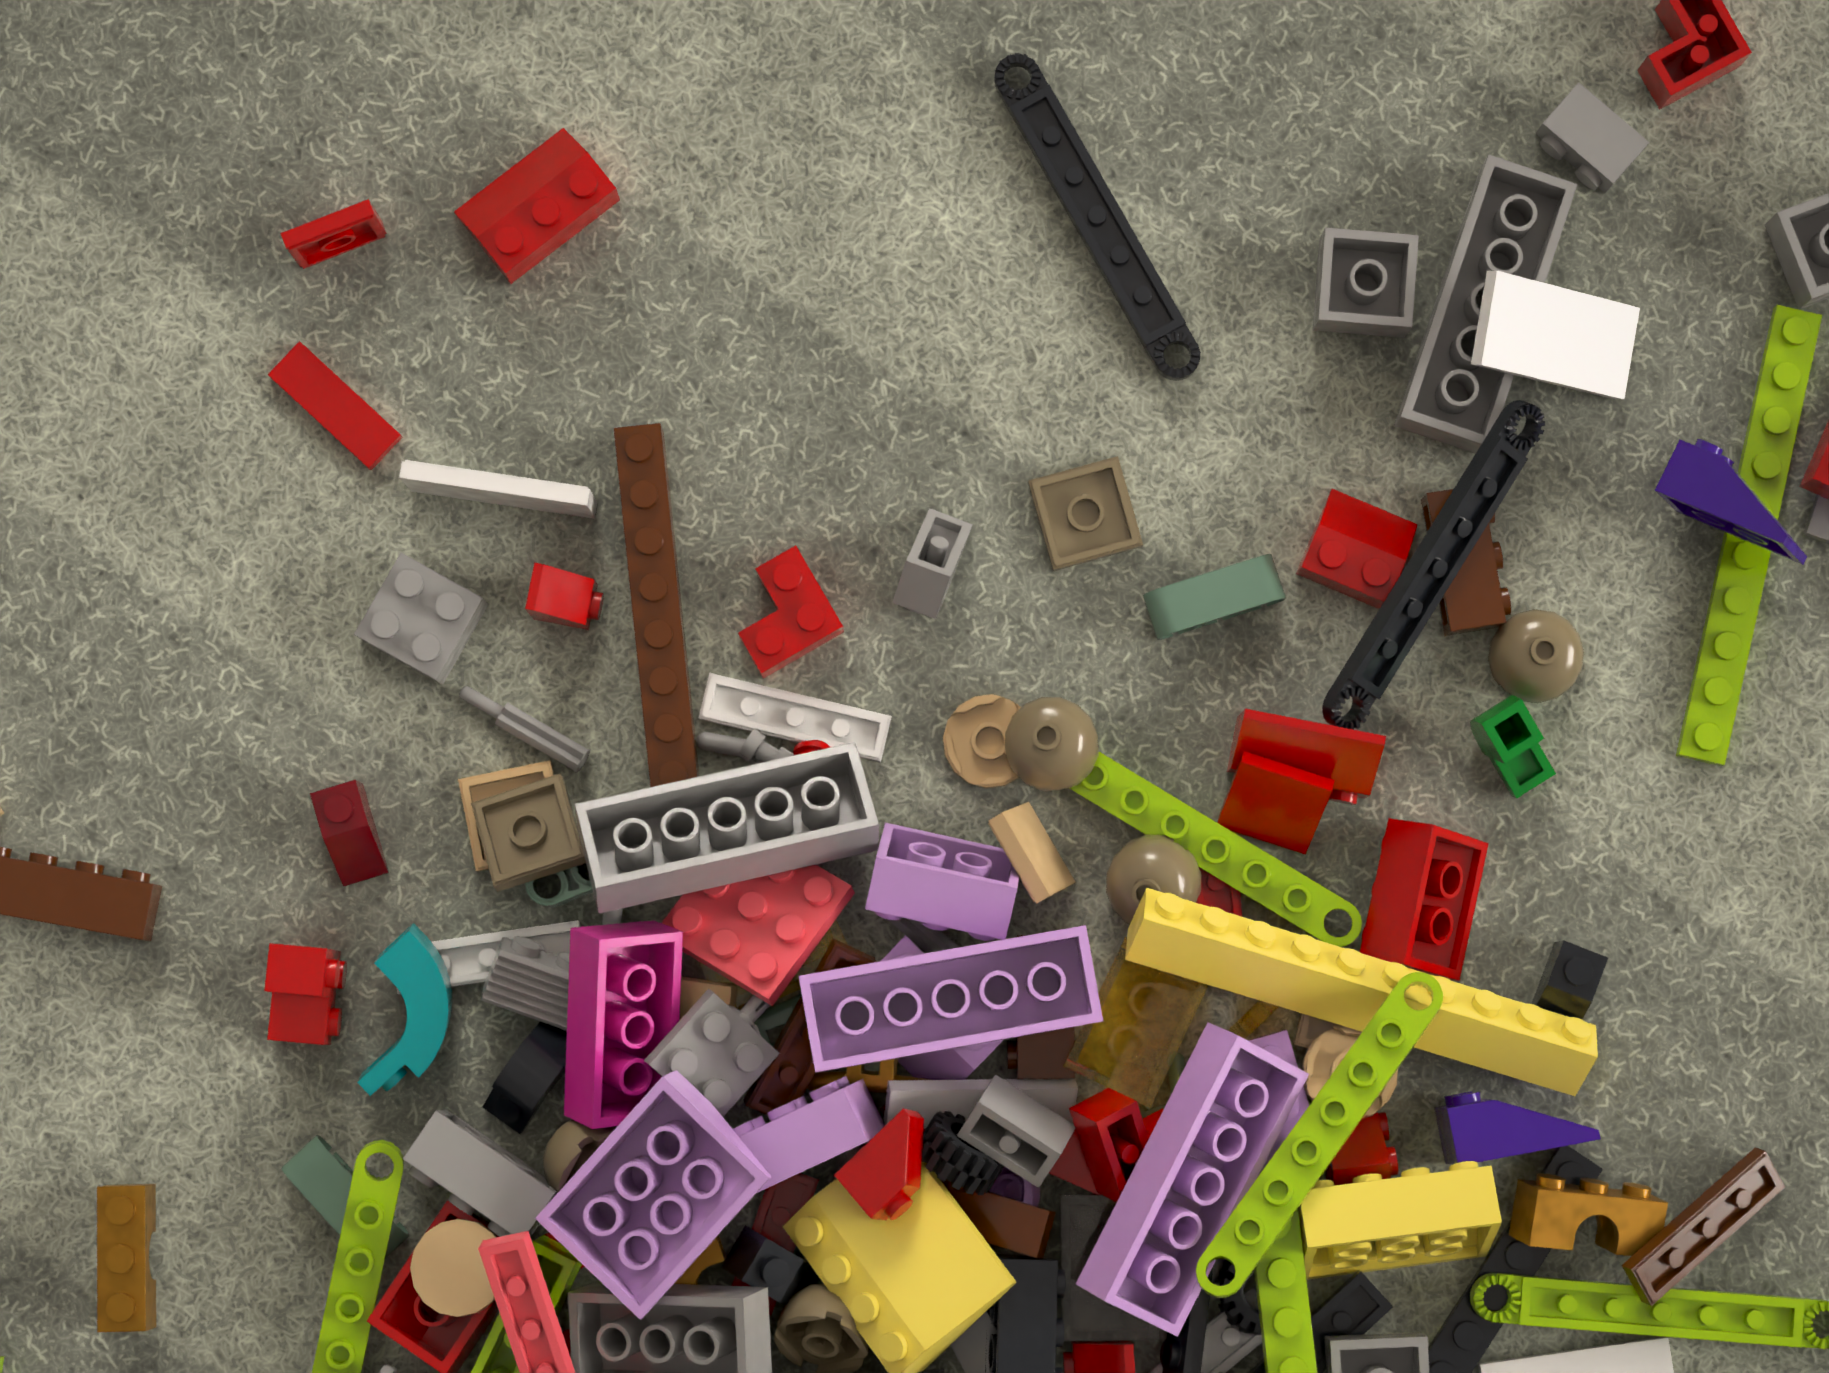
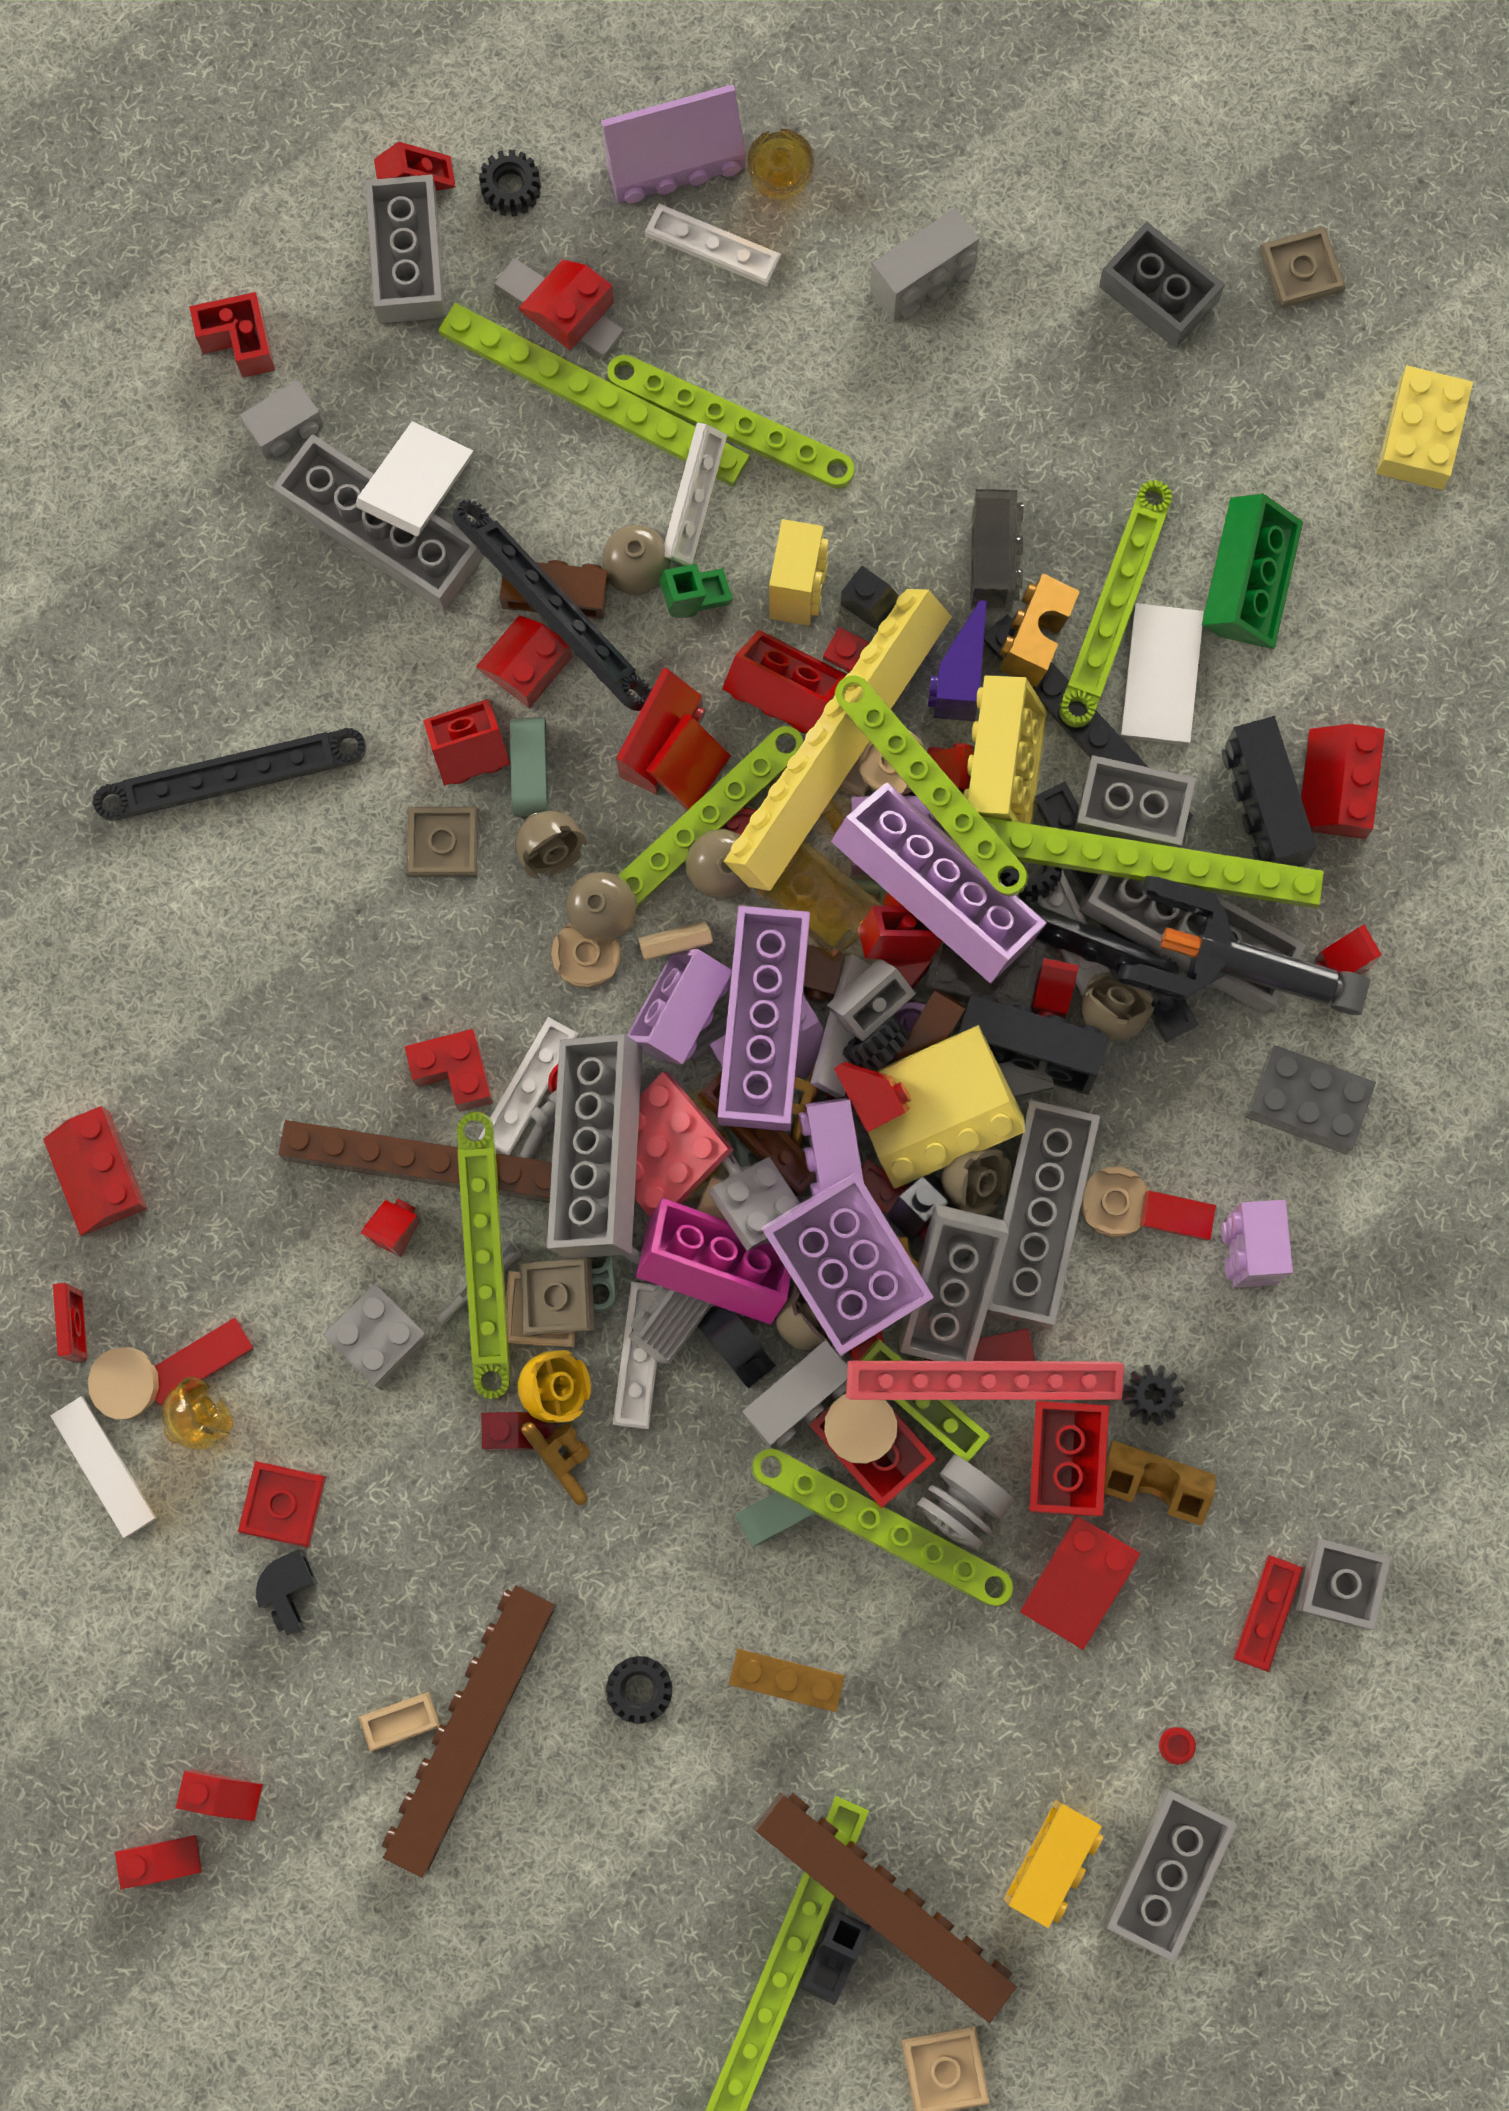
camera: 70 degrees left, 5 degrees down
(41, 1068) = (616, 1689): none -> black tyre
(80, 589) = (277, 1585): none -> black brick
(174, 330) = (103, 1467): none -> white tile
(185, 563) = (282, 1504): none -> red tile
(261, 423) = (193, 1417): none -> clear yellow cylinder
(281, 322) = (123, 1383): none -> tan tile
(304, 993) = (628, 1495): red brick -> none
(342, 912) = (560, 1465): none -> pearl gold piece
(413, 861) = (554, 1386): none -> yellow cylinder
(426, 988) = (665, 1405): teal arch -> none
(498, 489) = (297, 1250): white tile -> none
(555, 724) = (483, 1255): none -> lime plate
(932, 563) = (446, 957): light grey slope -> none
(1120, 650) = (548, 842): none -> dark tan cylinder
(1224, 506) = (466, 742): none -> red slope
(1365, 282) = (336, 599): light grey brick -> none
(1491, 966) = (844, 649): none -> red plate
(1579, 873) = (798, 572): none -> light yellow brick
(1644, 708) = (694, 494): none -> white tile
(1682, 1131) = (996, 549): none -> clear smoke brick
(1703, 1226) = (1065, 556): reddish brown tile -> none
(1709, 490) = (560, 401): dark purple slope -> none
(1764, 730) = (739, 423): none -> lime plate

